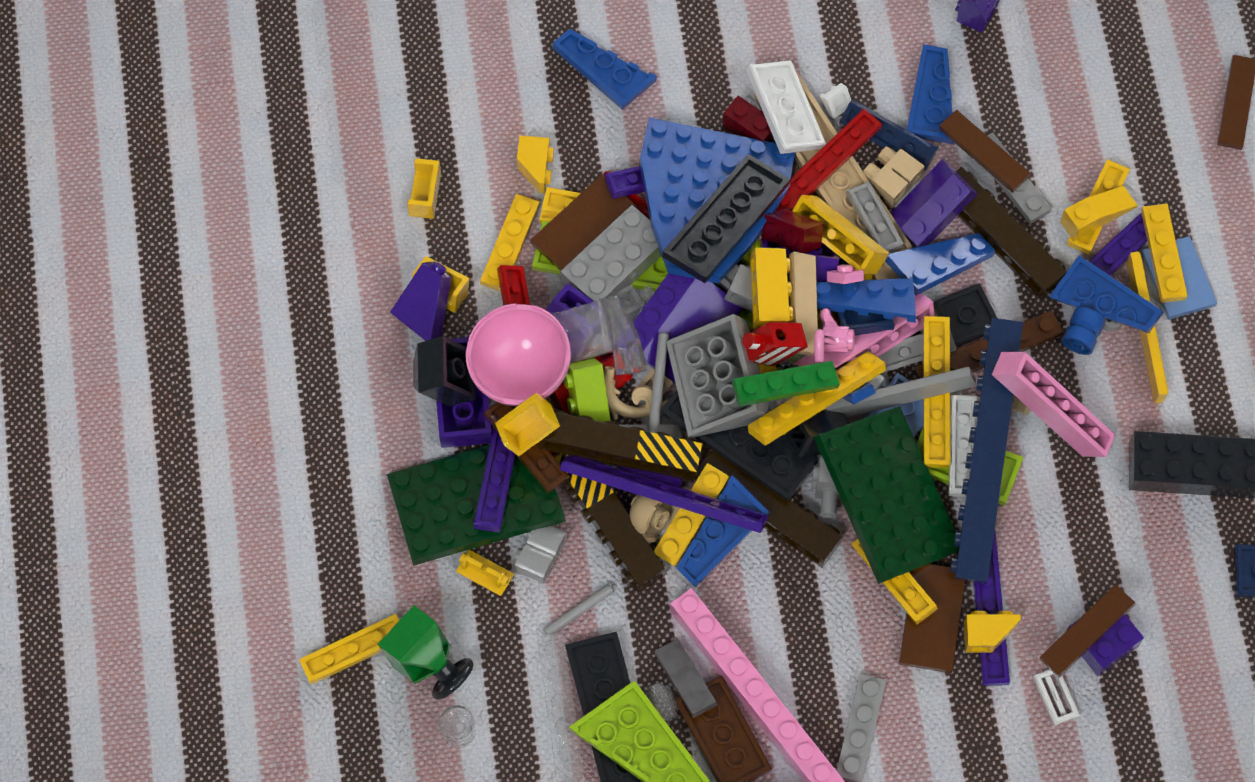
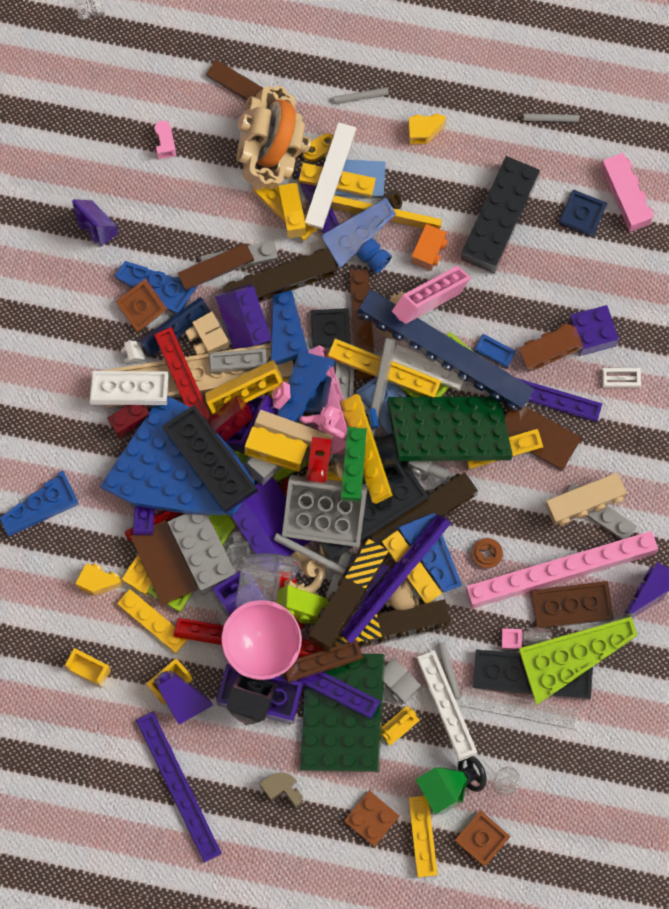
camera: 70 degrees left, 5 degrees up
(316, 344) = (178, 787): none -> dark purple tile
(355, 581) = (371, 818): none -> dark orange plate
(359, 456) = (281, 783): none -> dark tan brick
(375, 723) = (482, 838): none -> dark orange plate
(527, 424) = (315, 652): yellow panel -> none
(527, 618) = (446, 705): none -> white tile
(647, 672) = (511, 639): none -> bright pink plate
(685, 678) = (525, 614): flat silver tile -> none
(758, 596) = (483, 545): none -> dark orange gear
(867, 699) = (586, 499): none -> tan brick
(898, 86) = (141, 305): none -> dark orange plate
(987, 631) = (566, 404): yellow slope -> none
(1023, 524) = (495, 351): none -> blue tile
(1054, 586) = (551, 347): none -> dark orange brick
(1087, 631) = (591, 338): reddish brown tile -> none
(1124, 40) = (164, 134): none -> bright pink leg
(1125, 394) = (428, 247): none -> orange brick
(1163, 238) = (330, 176): none -> white tile
(1168, 330) = (394, 199): none -> dark brown tile
(1181, 150) = (270, 137): none -> tan piece
(1198, 220) = (320, 147): none -> yellow plate

